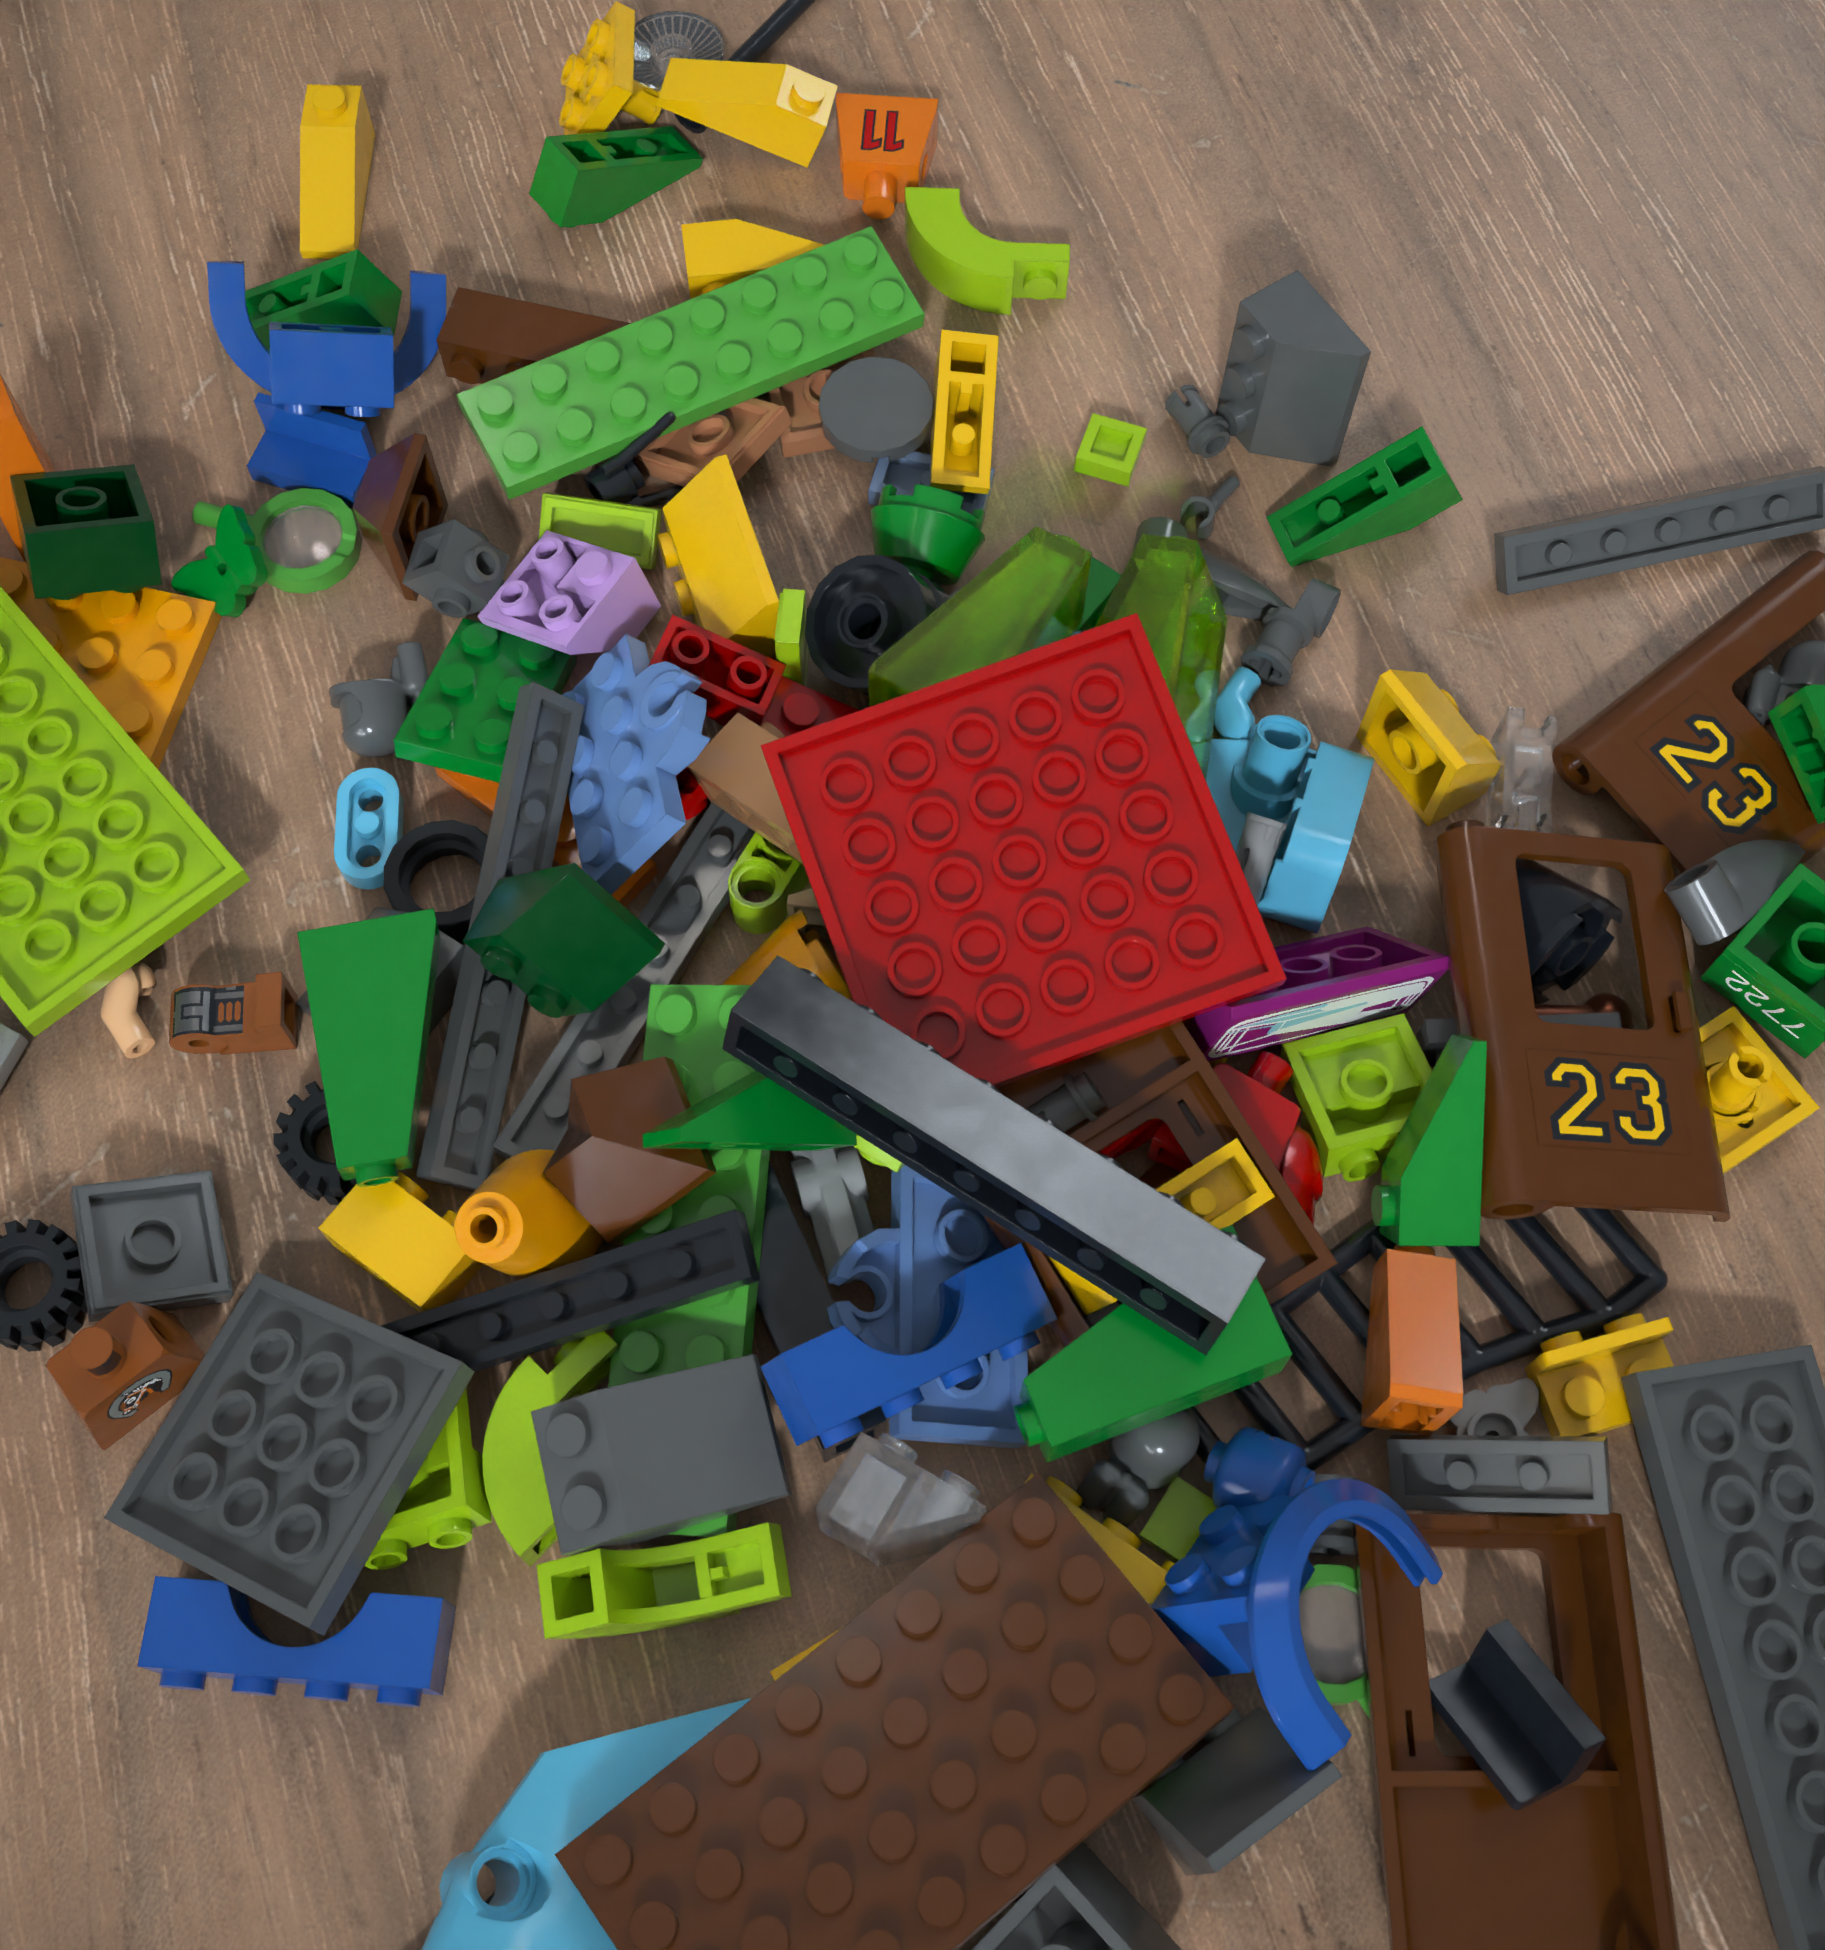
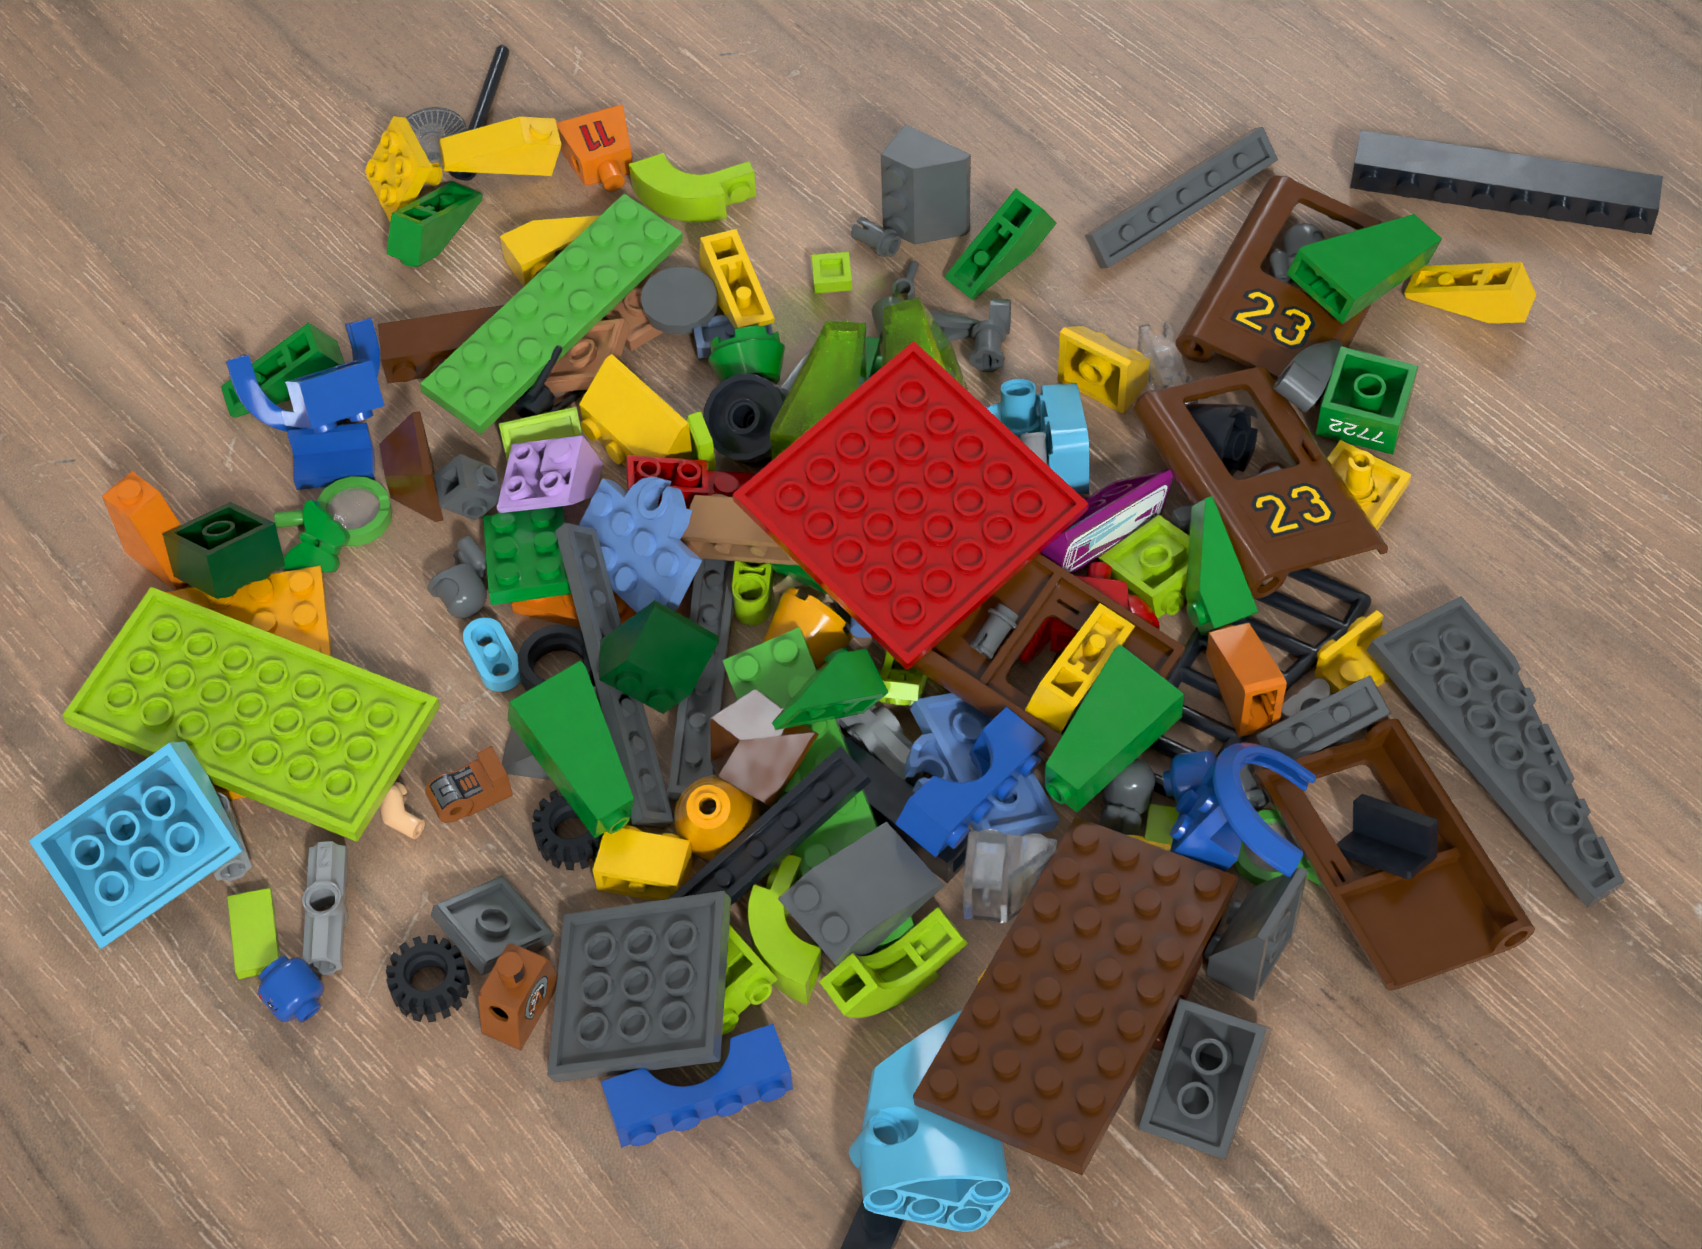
camera: 20 degrees left, 10 degrees down
(333, 169) = (249, 286): yellow slope -> none
(992, 1153) = (970, 651): brick -> none
(1232, 713) = (979, 389): medium azure arm -> none

